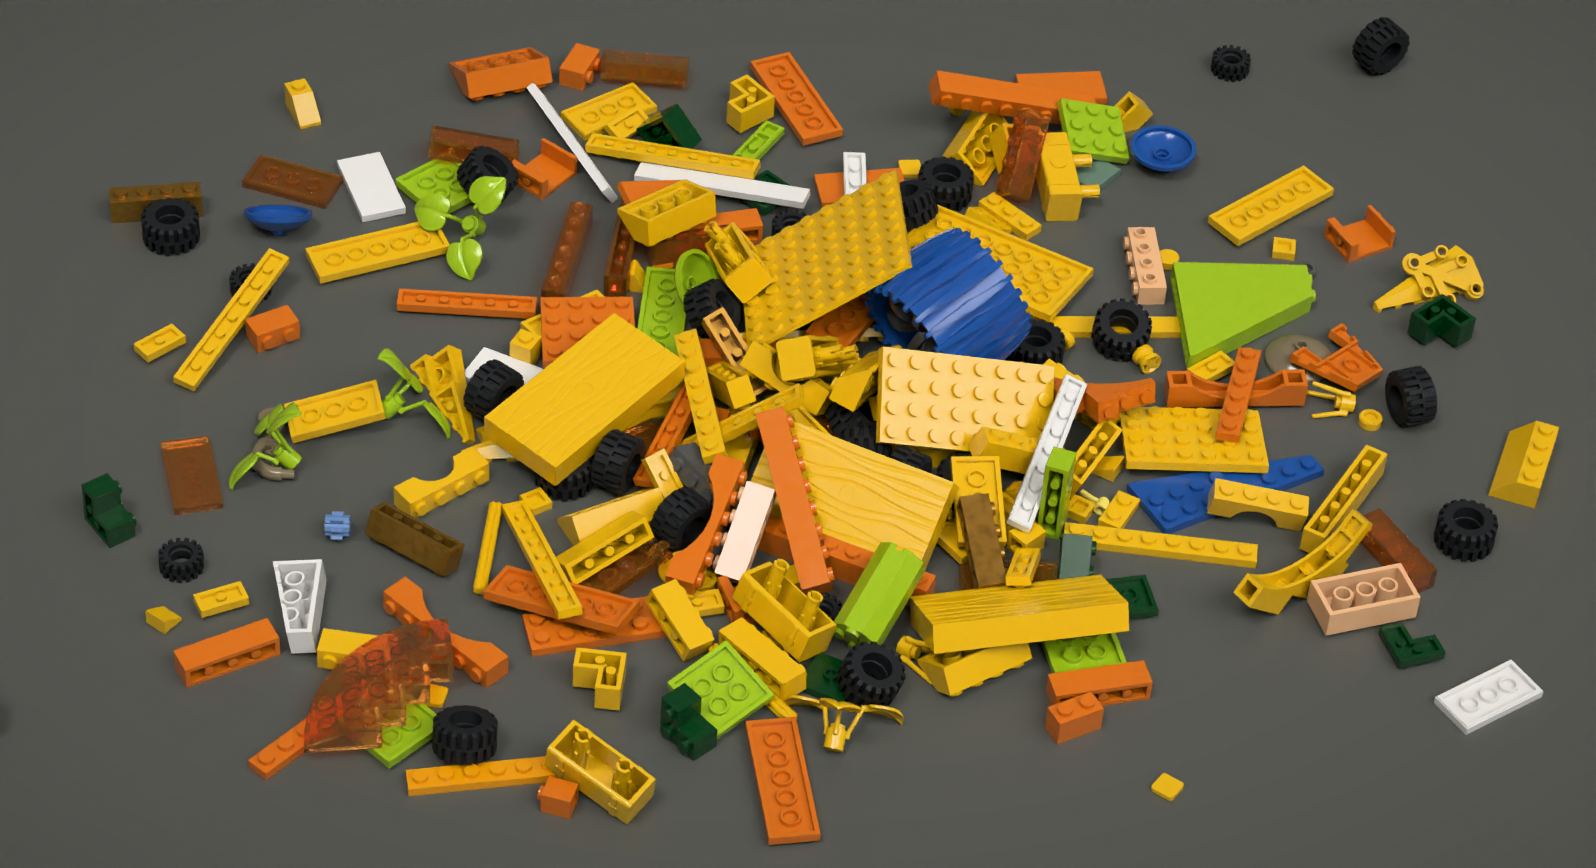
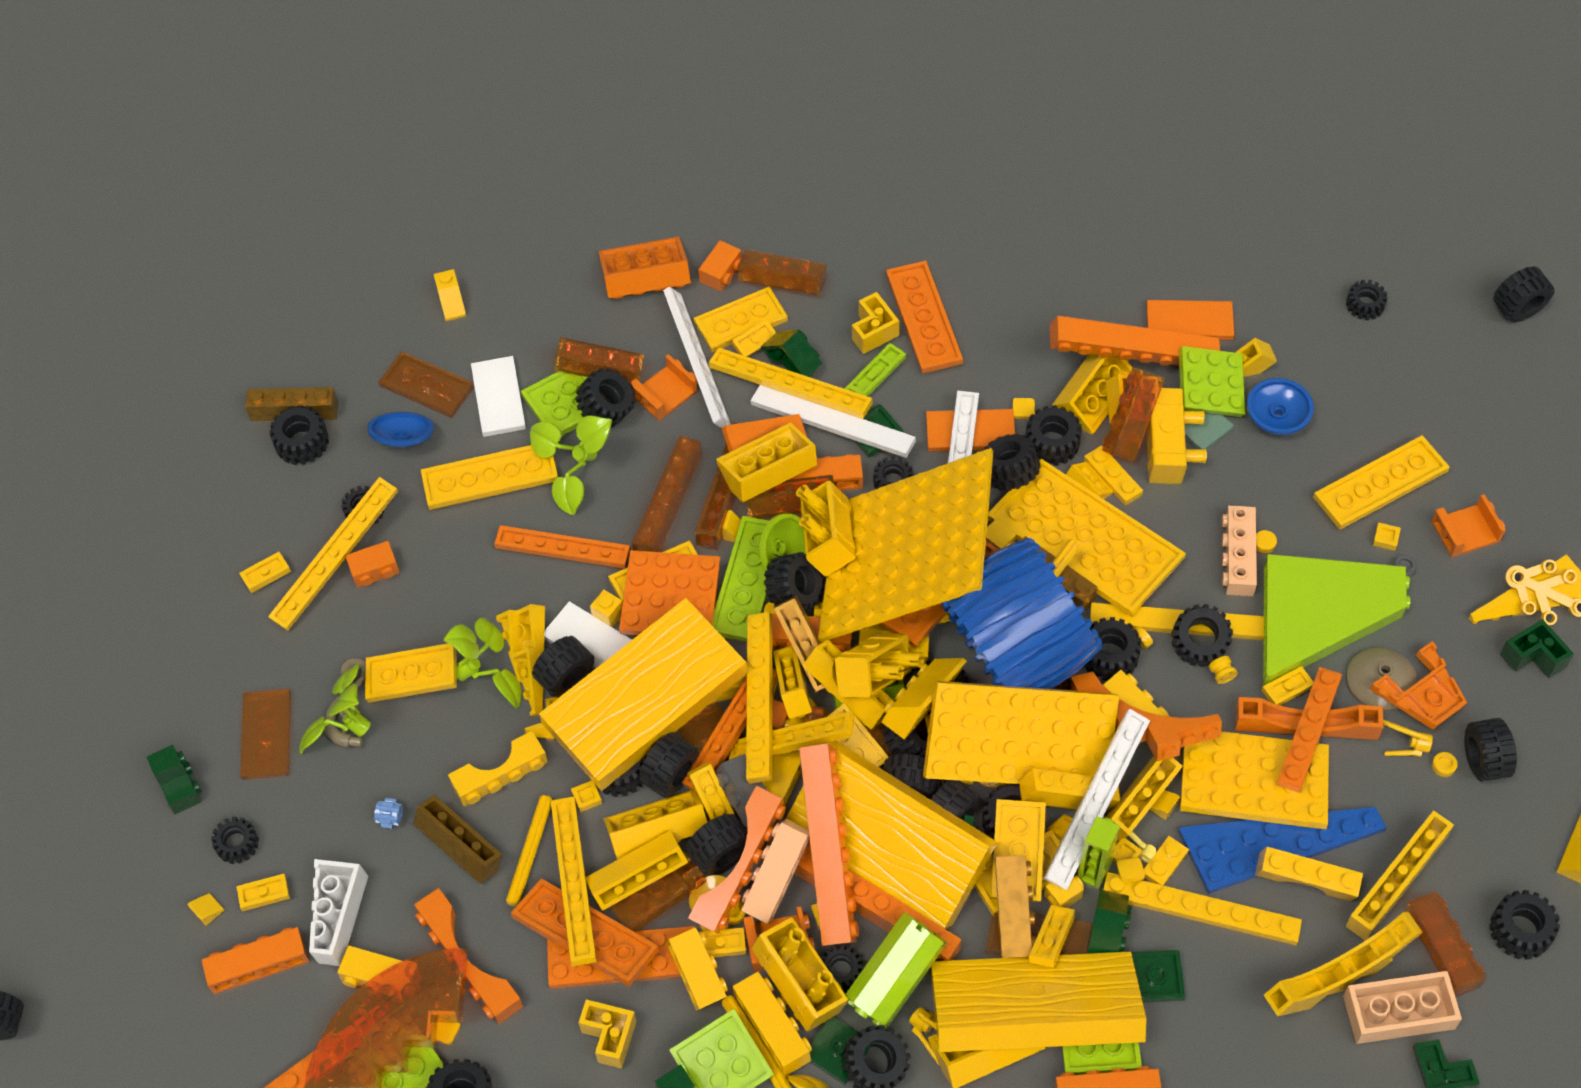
camera: 15 degrees right, 15 degrees up
(1087, 516) = (1130, 870): none -> yellow piece

